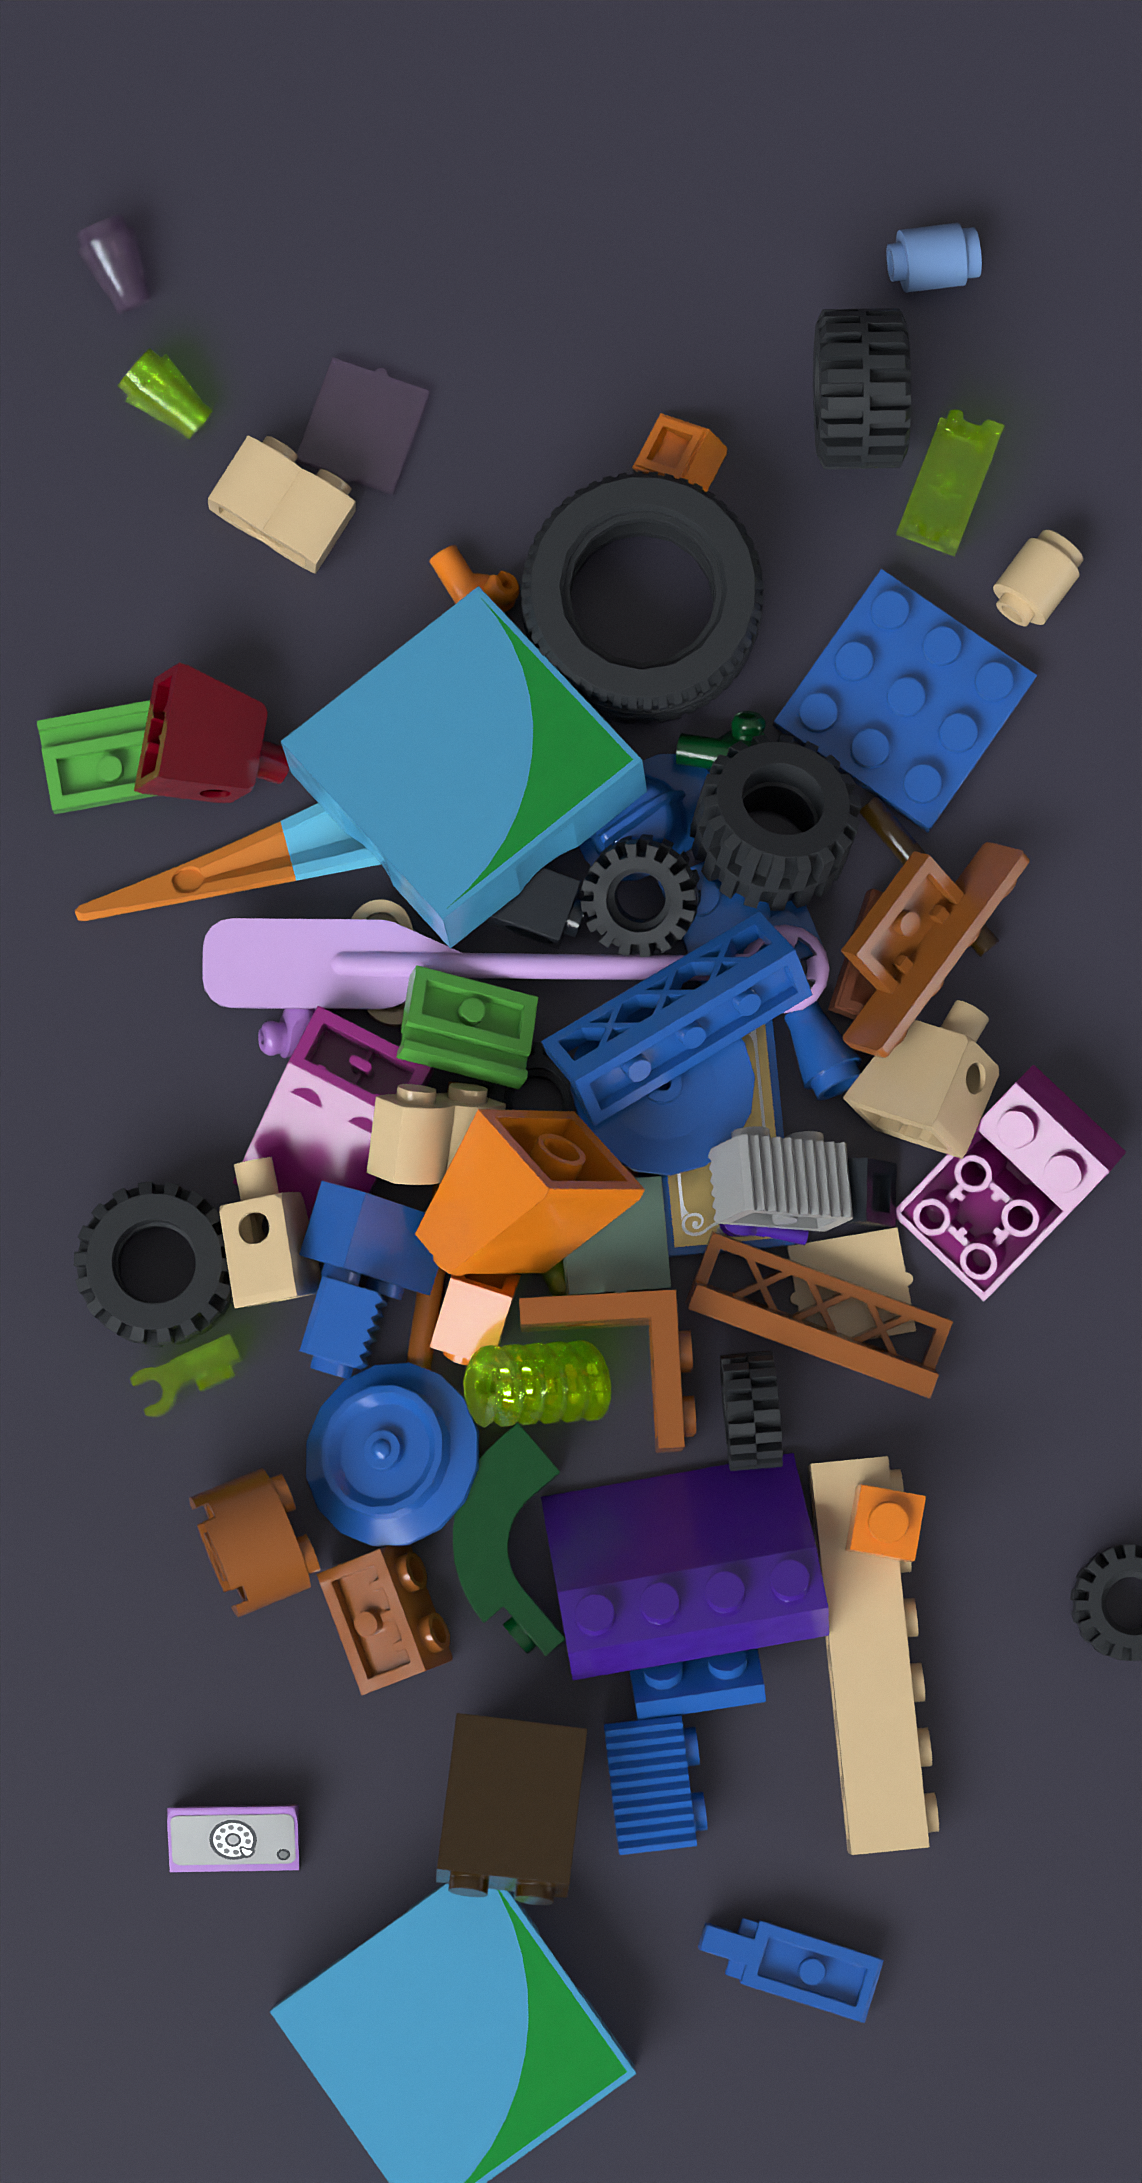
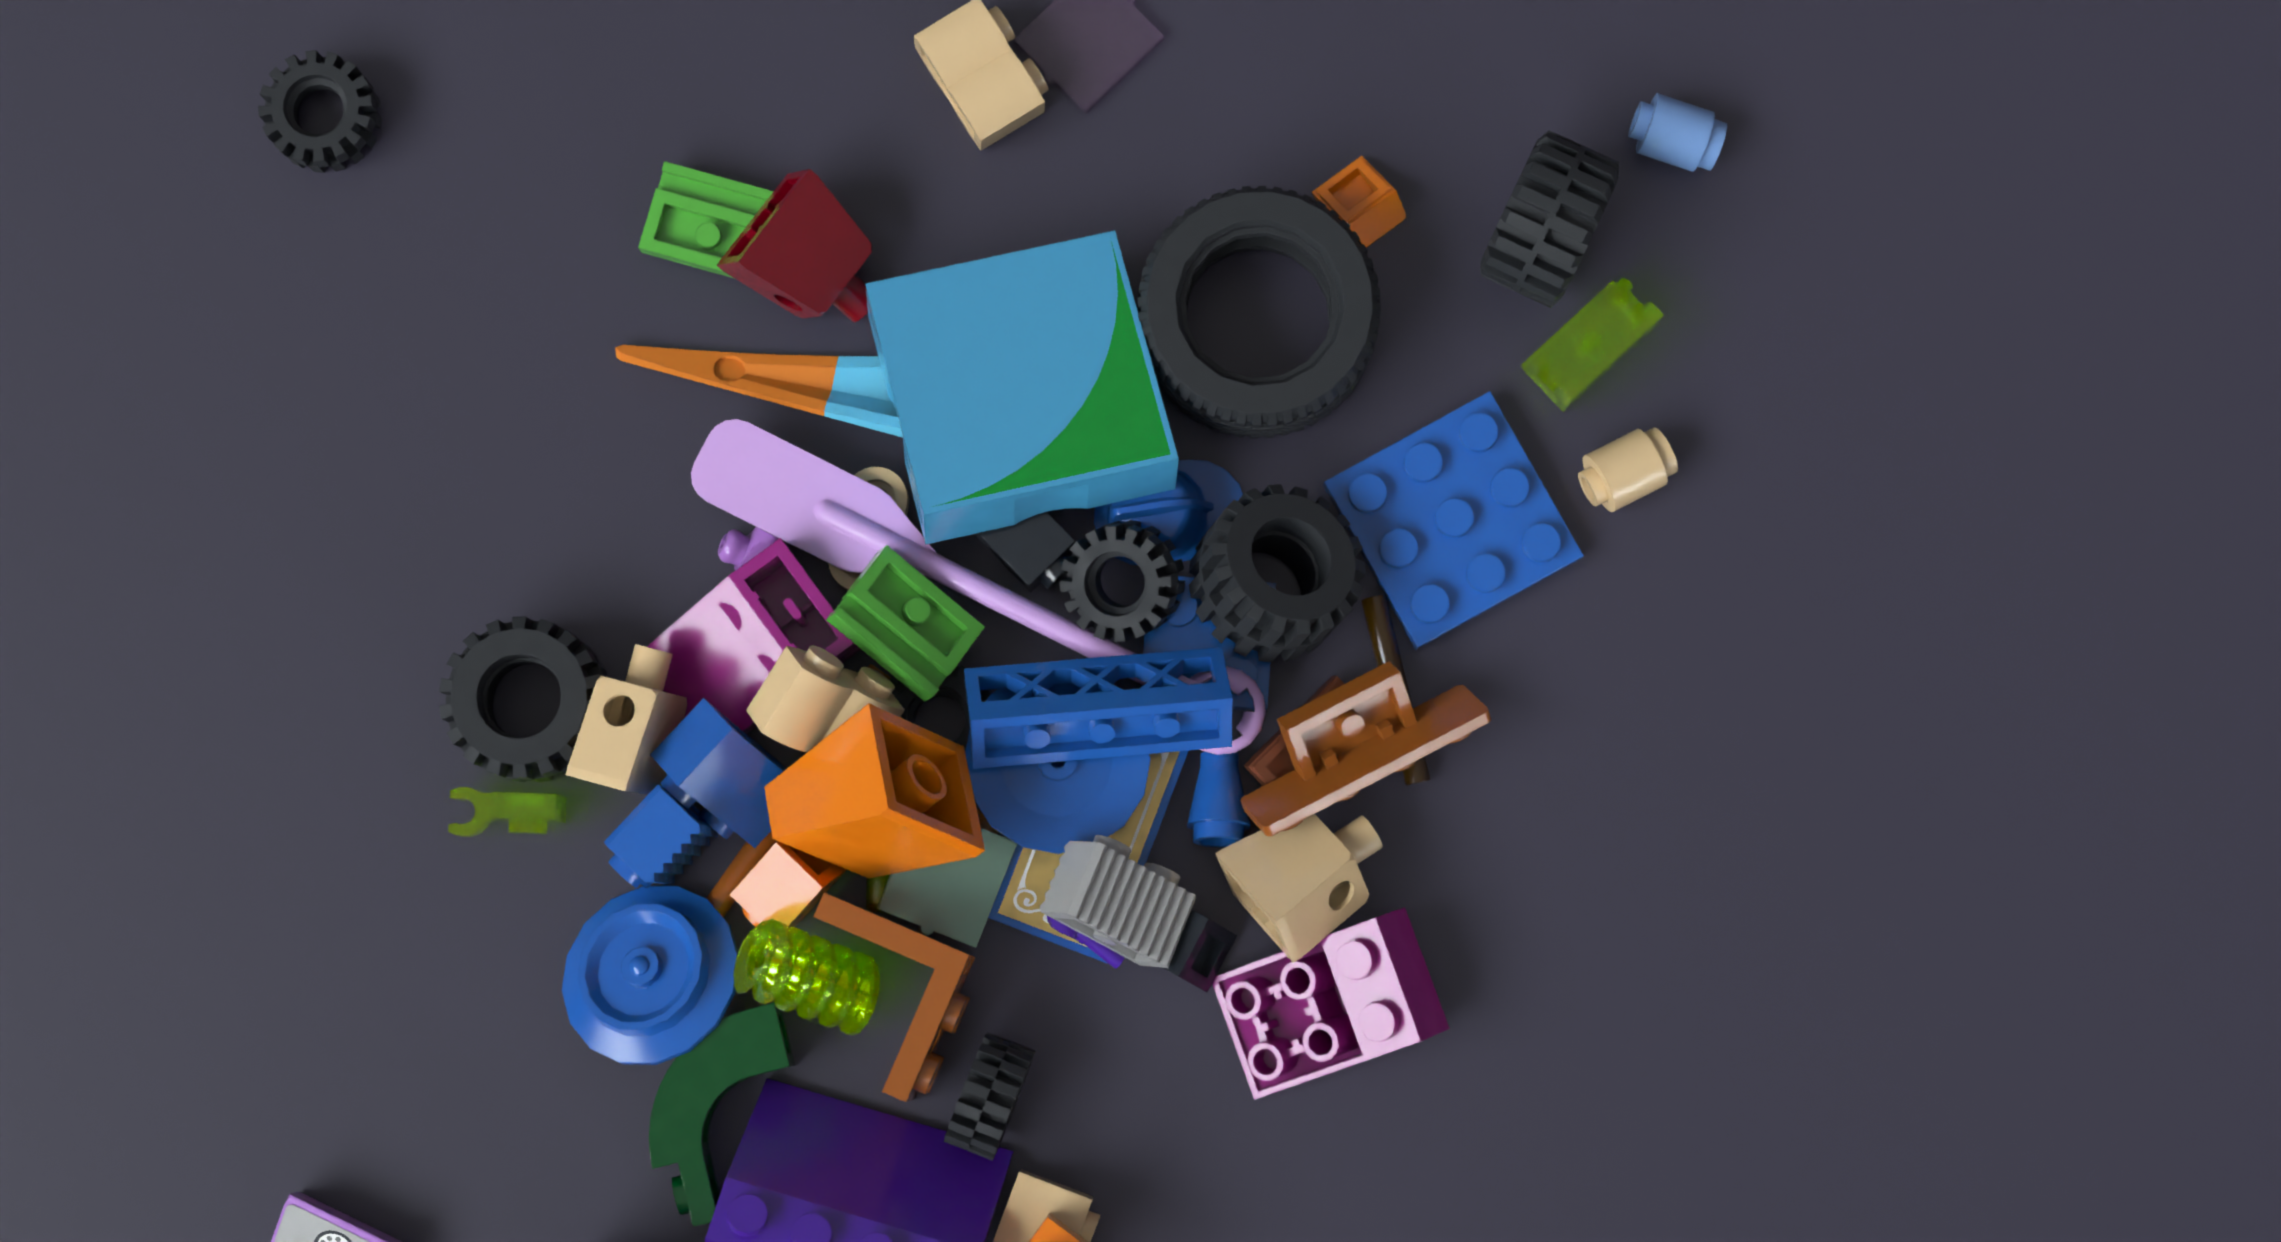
camera: 30 degrees right, 0 degrees up
(254, 1541) = (484, 991): dark orange brick -> none
(386, 1616) = (573, 1118): dark orange bracket -> none
(460, 580) = (1106, 217): orange arm -> none
(703, 750) = (1245, 475): dark green arm -> none
(811, 1337) = (1079, 1056): dark orange fence -> none
(864, 1259) = (1140, 1028): tan piece -> none

